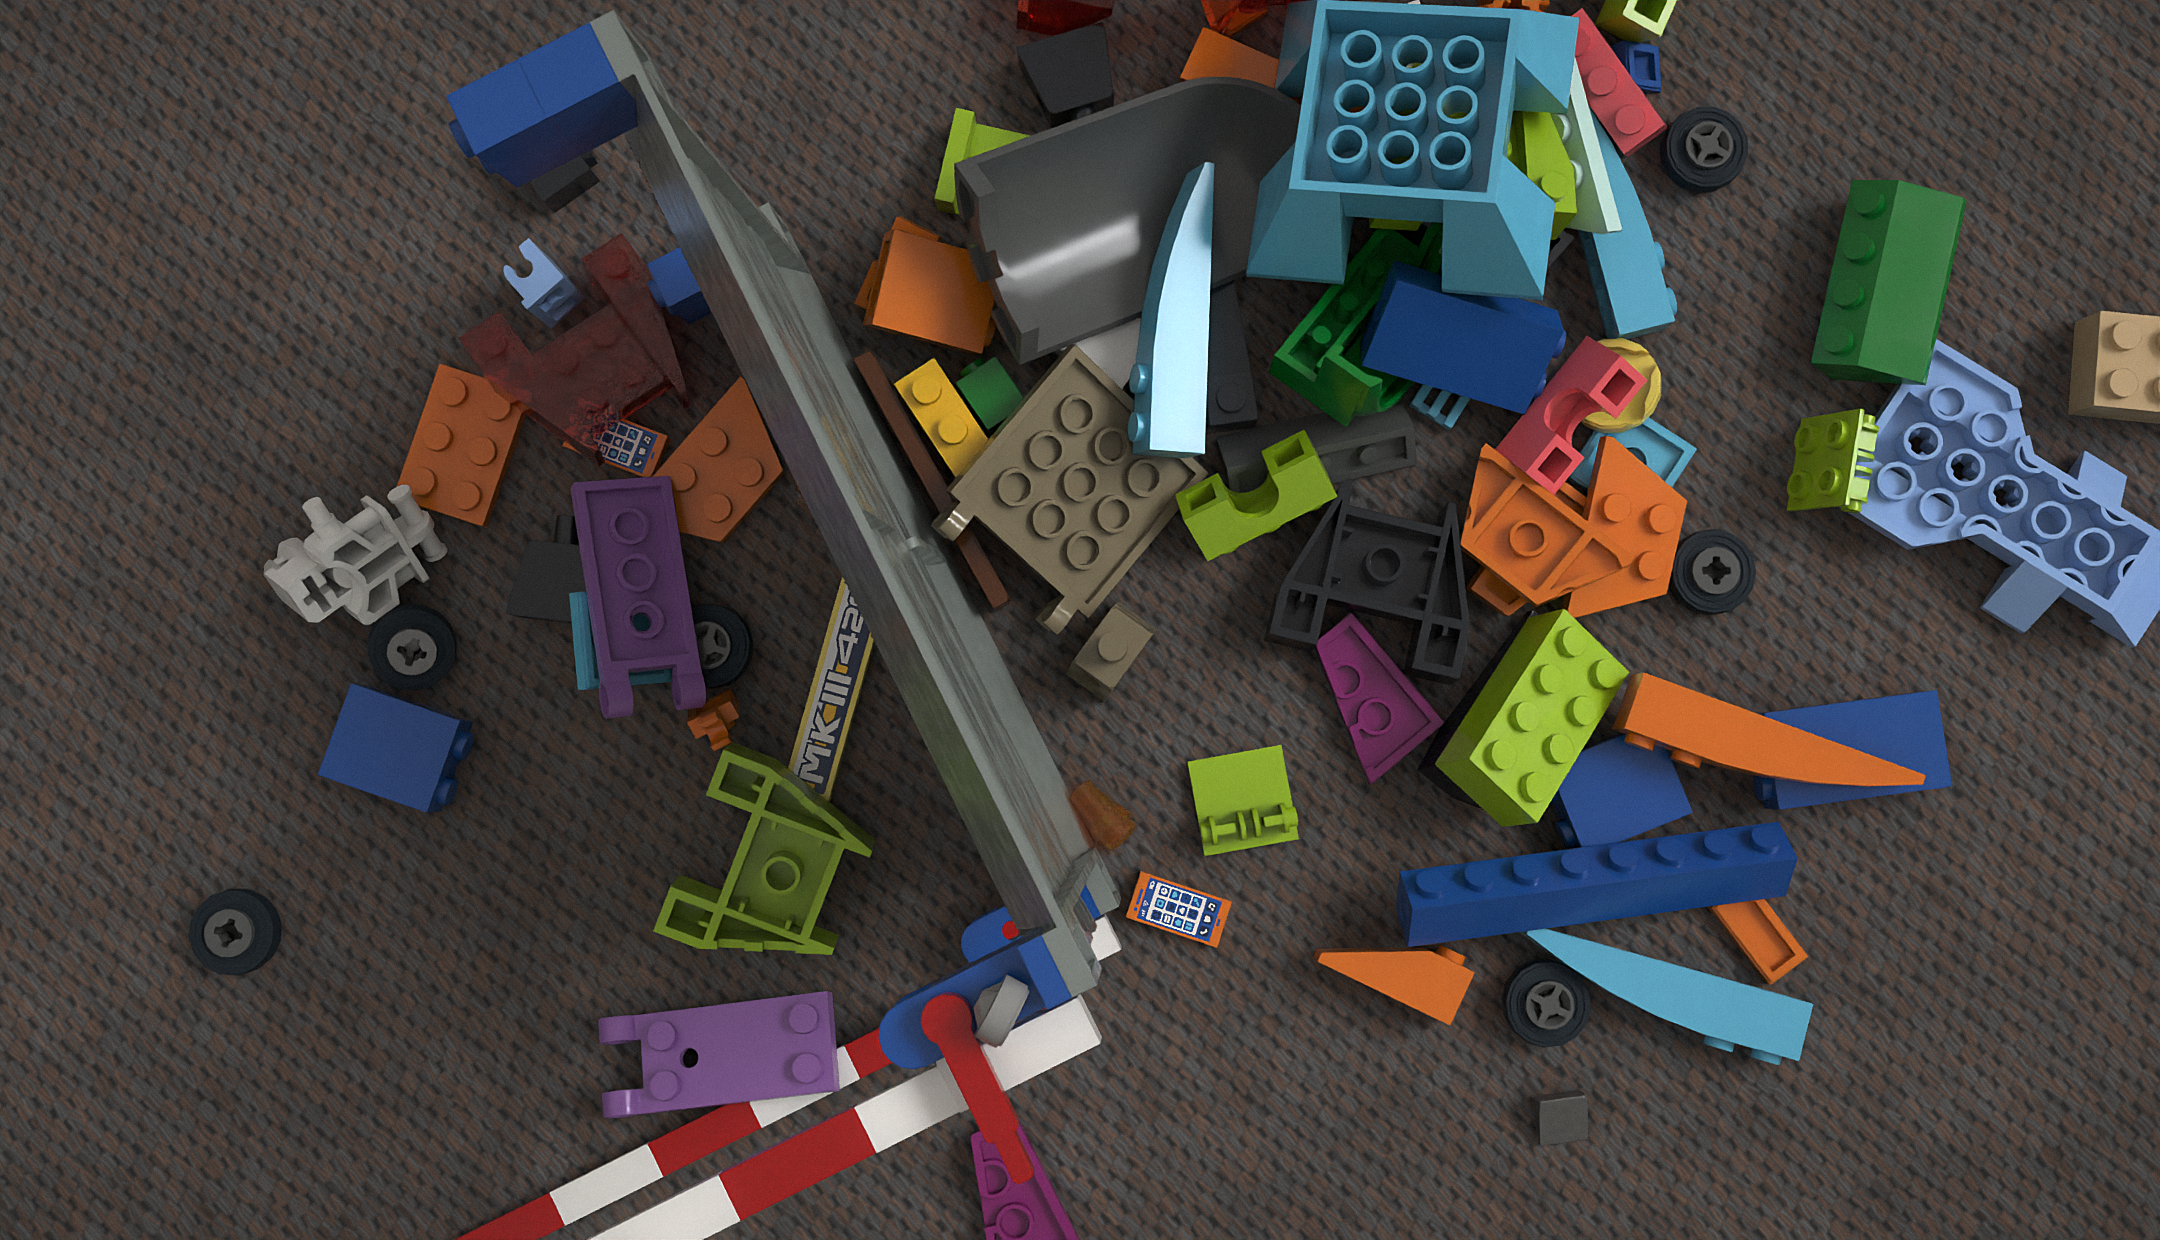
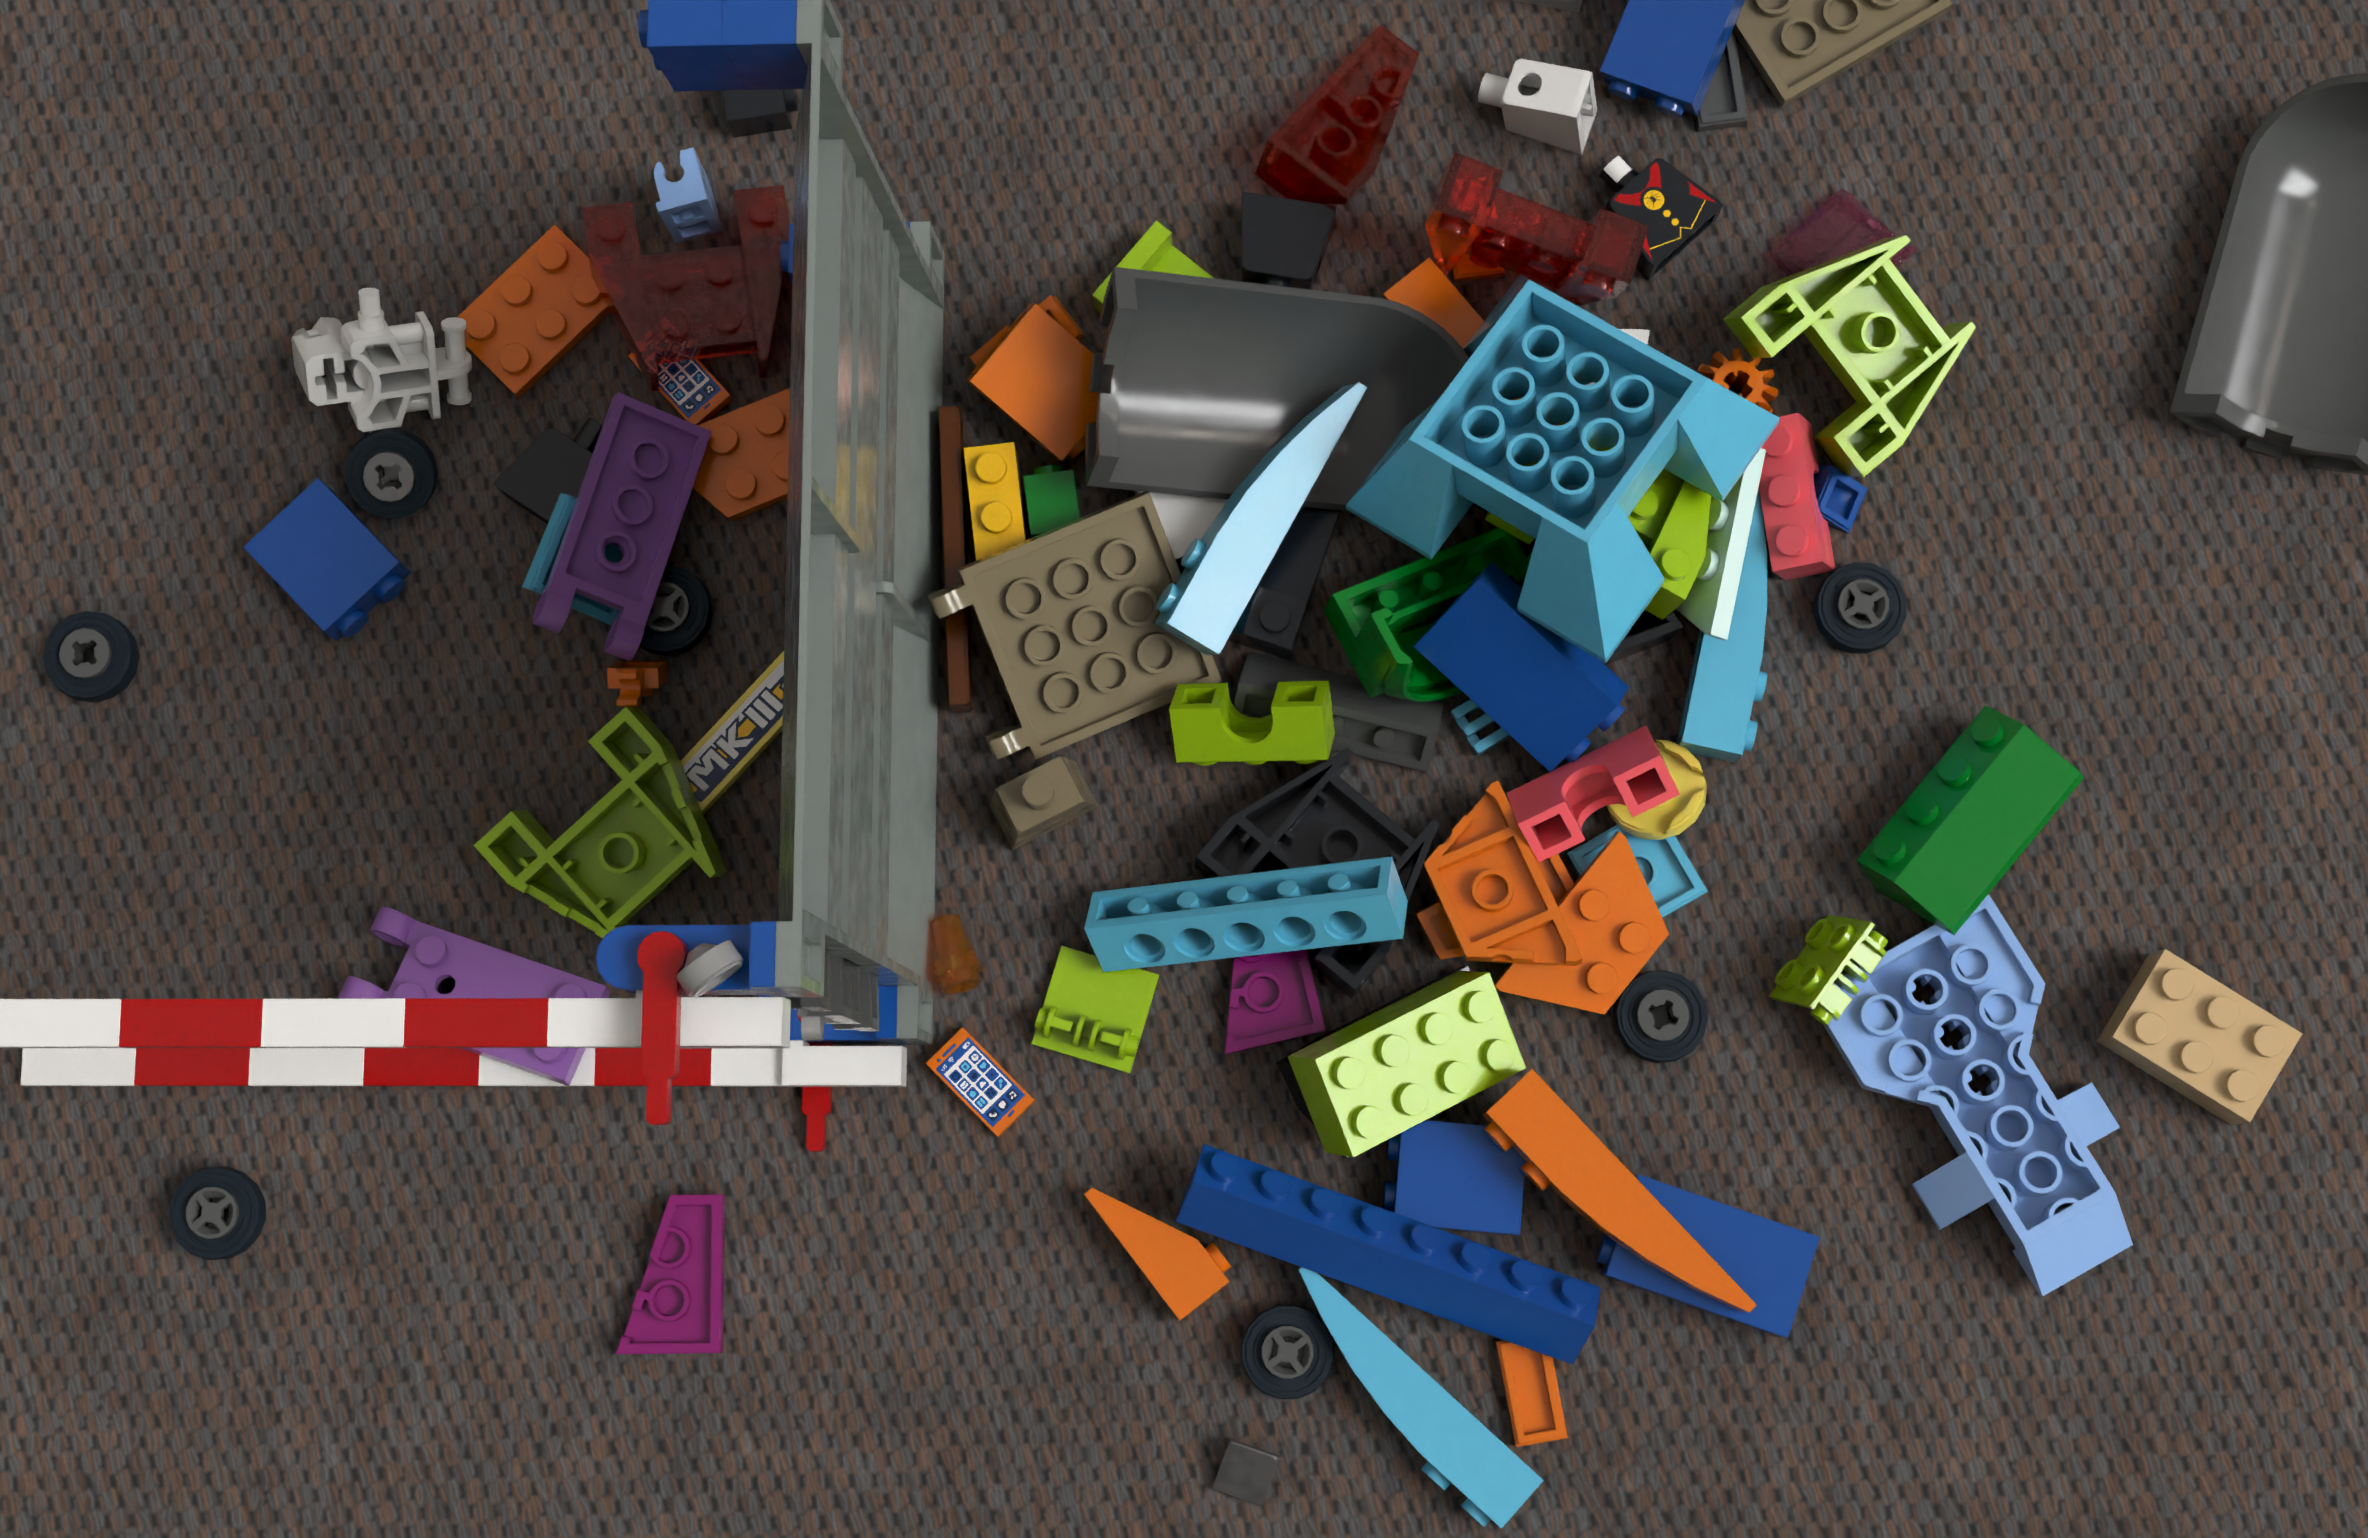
camera: 30 degrees right, 5 degrees down
(1339, 661) = (1247, 914): none -> medium azure brick

